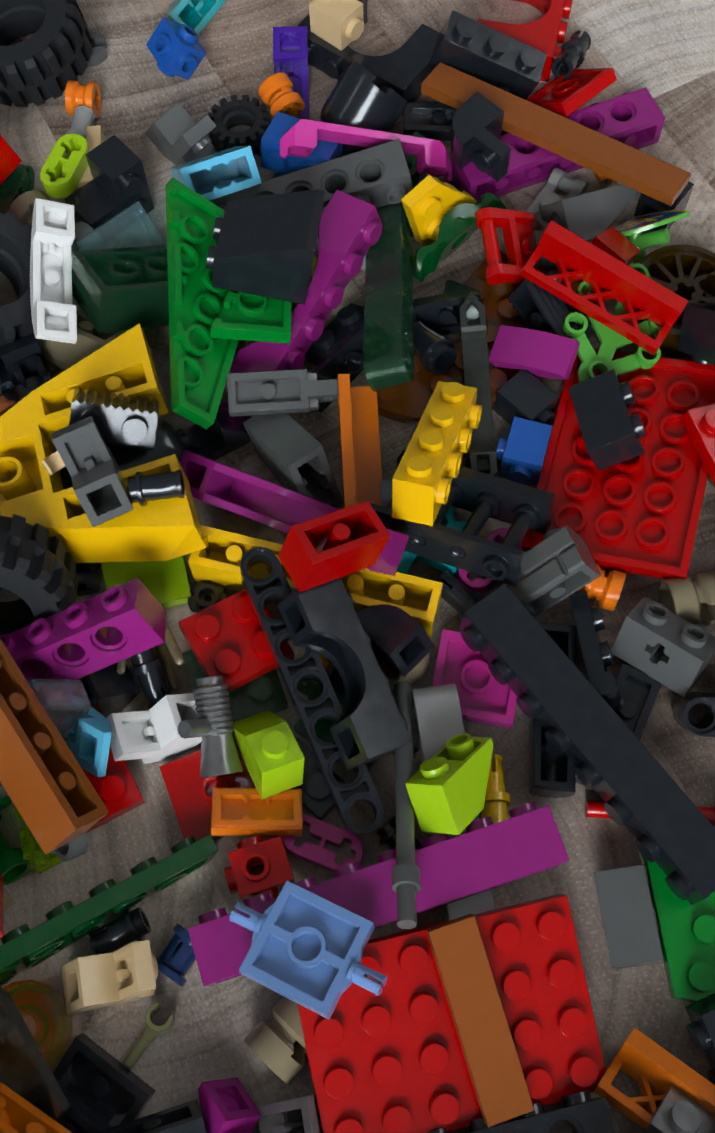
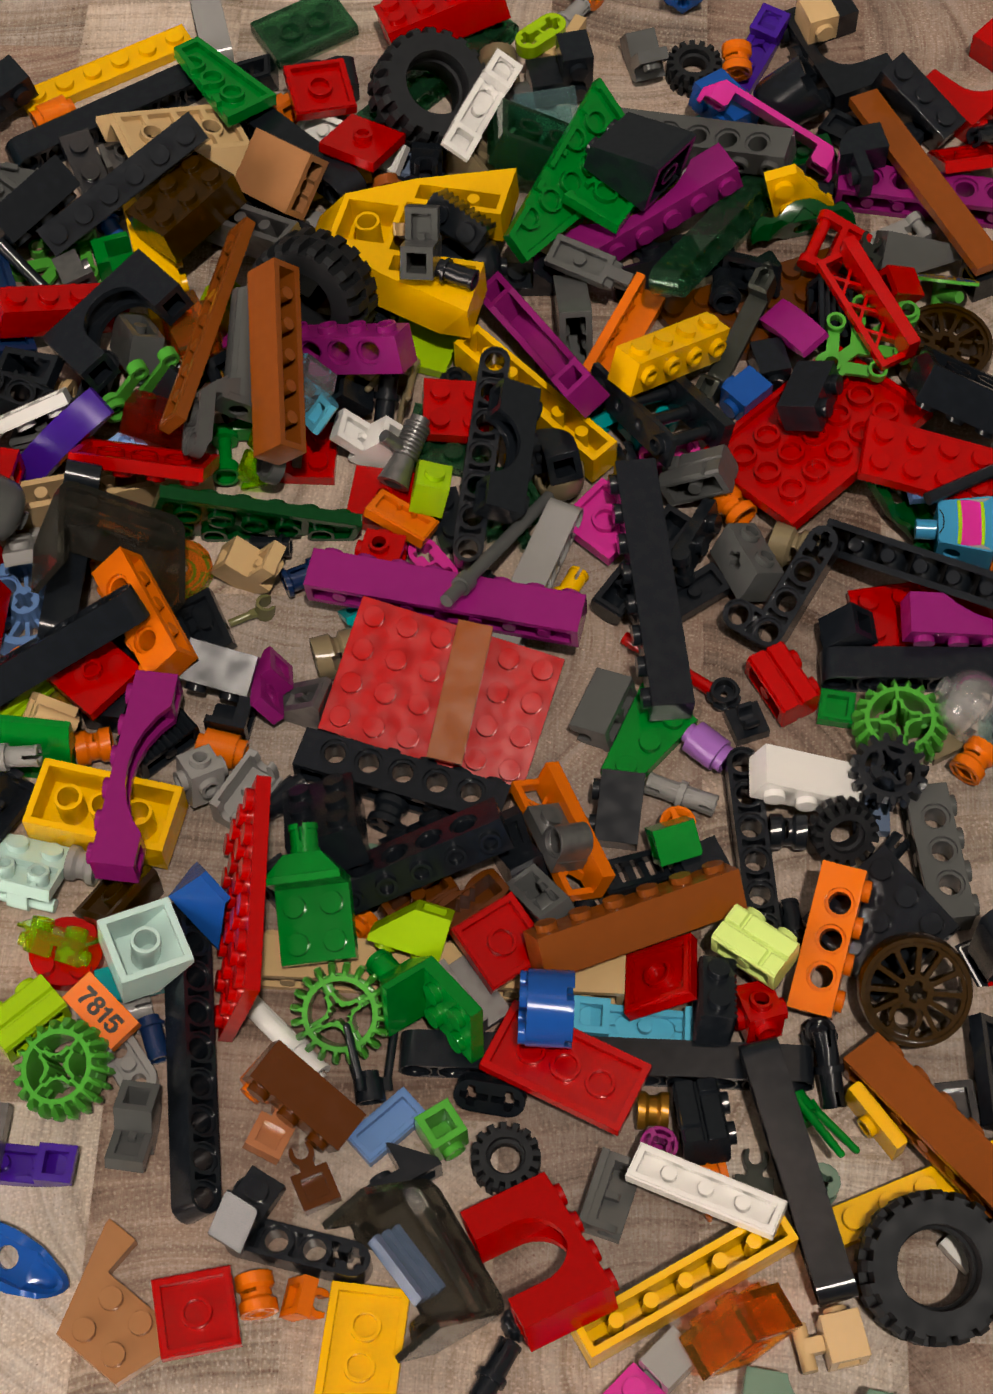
camera: 30 degrees right, 5 degrees down
(219, 172) = (646, 93): medium azure brick -> none
(307, 949) = (378, 587): medium blue plate -> none
(333, 545) = (545, 361): red brick -> none
(452, 784) = (533, 555): lime slope -> none

